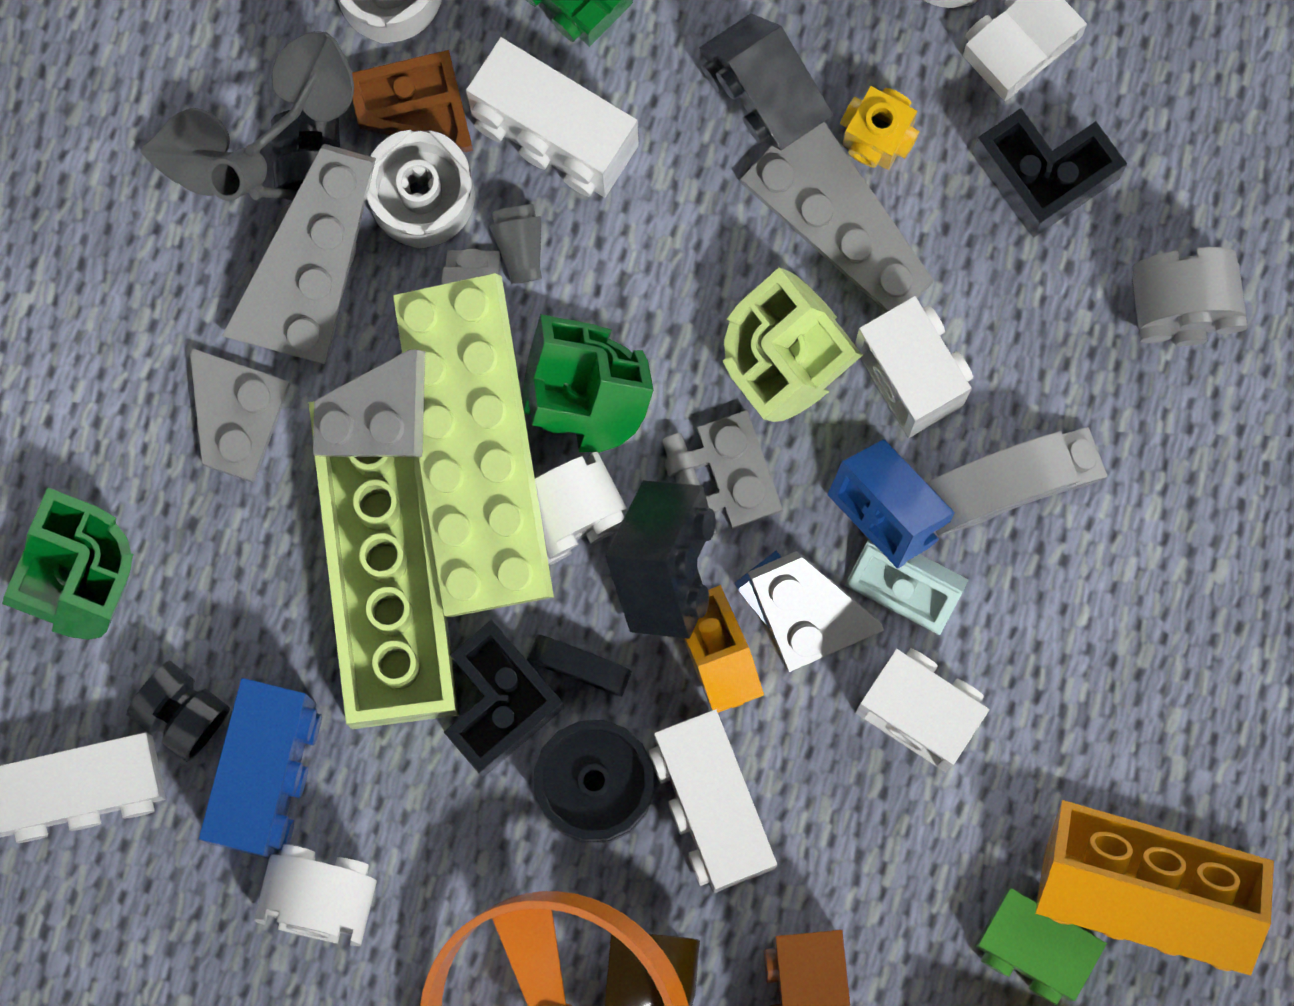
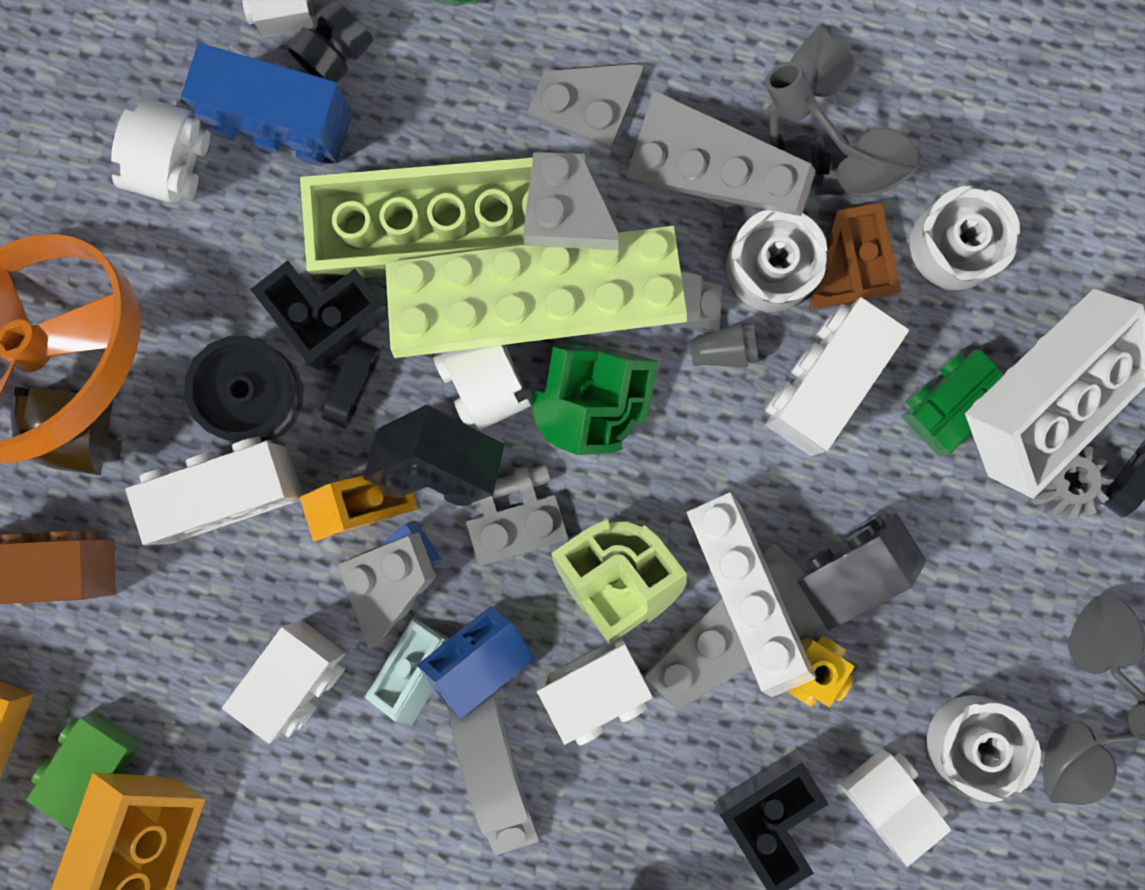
camera: 90 degrees right, 5 degrees up
(798, 199) = (751, 596): none -> white brick

